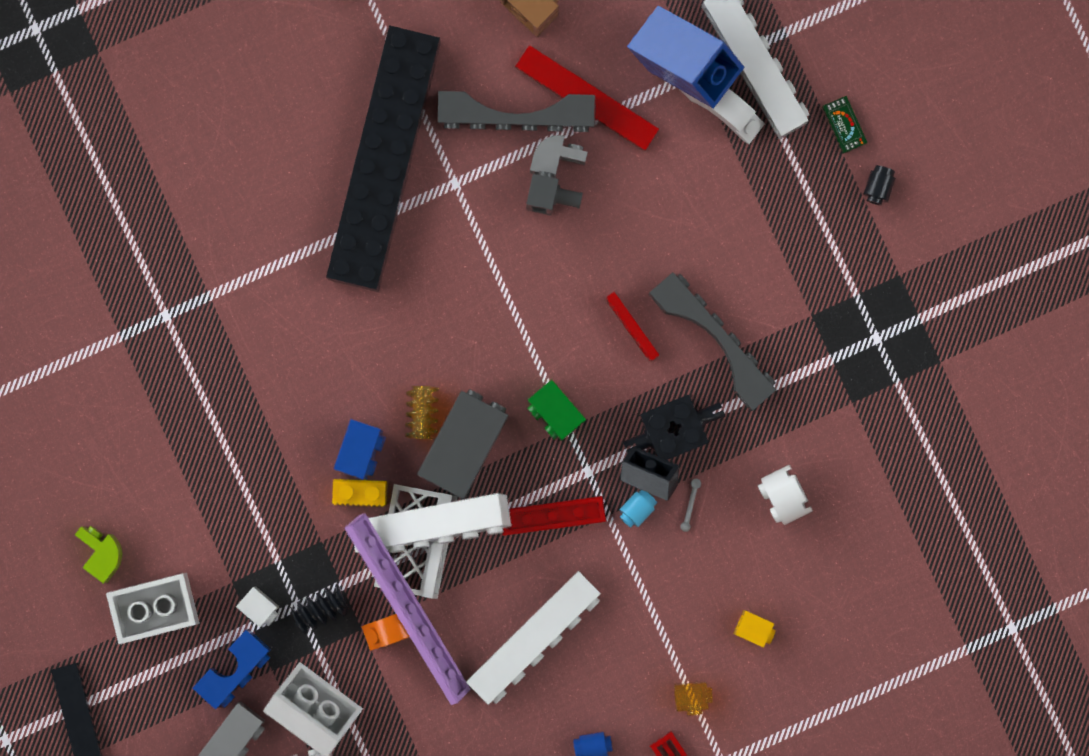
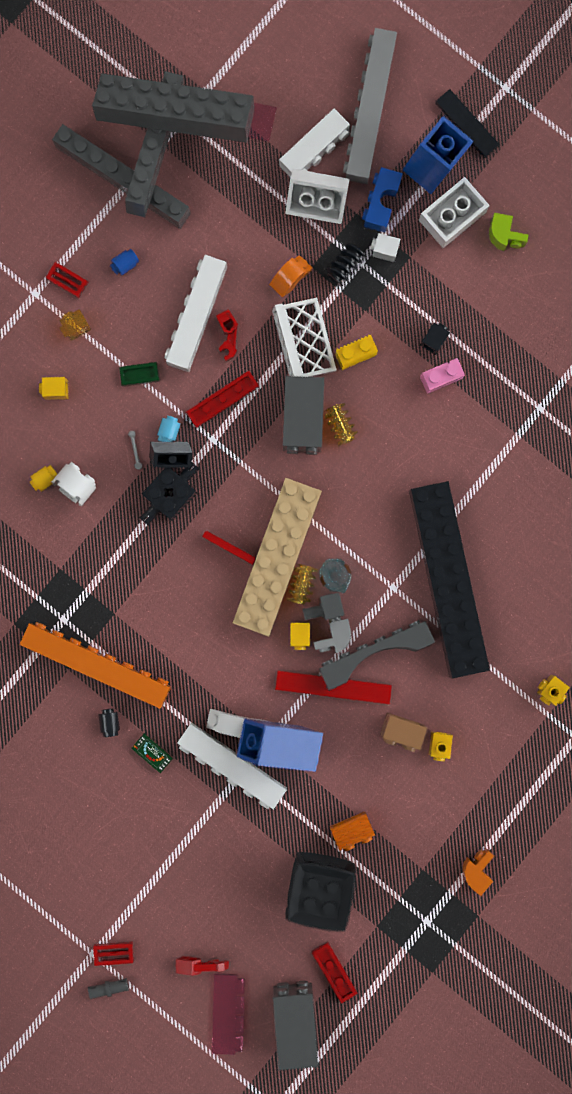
camera: 160 degrees right, 0 degrees up
(141, 683) = (437, 155): none -> blue brick
(252, 463) = (435, 338): none -> black brick
(268, 412) = (442, 375): none -> bright pink brick
(359, 450) = (370, 378): blue brick -> none
(407, 608) = (288, 290): lavender tile -> none
(442, 522) = (298, 351): white brick -> none
(510, 578) = (229, 344): none -> red piece
(519, 230) = (335, 575): none -> clear light blue hair
(555, 411) = (252, 465): green brick -> none
(564, 239) = (302, 584): none -> clear yellow piece
(579, 286) = (277, 557): none -> tan brick
(597, 179) = (300, 635): none -> yellow brick
(640, 597) = (139, 374): none -> dark green tile
(748, 382) = (134, 547): dark grey arch -> none
(820, 522) = (43, 478): none -> yellow brick
(863, 262) = (95, 665): none -> orange brick

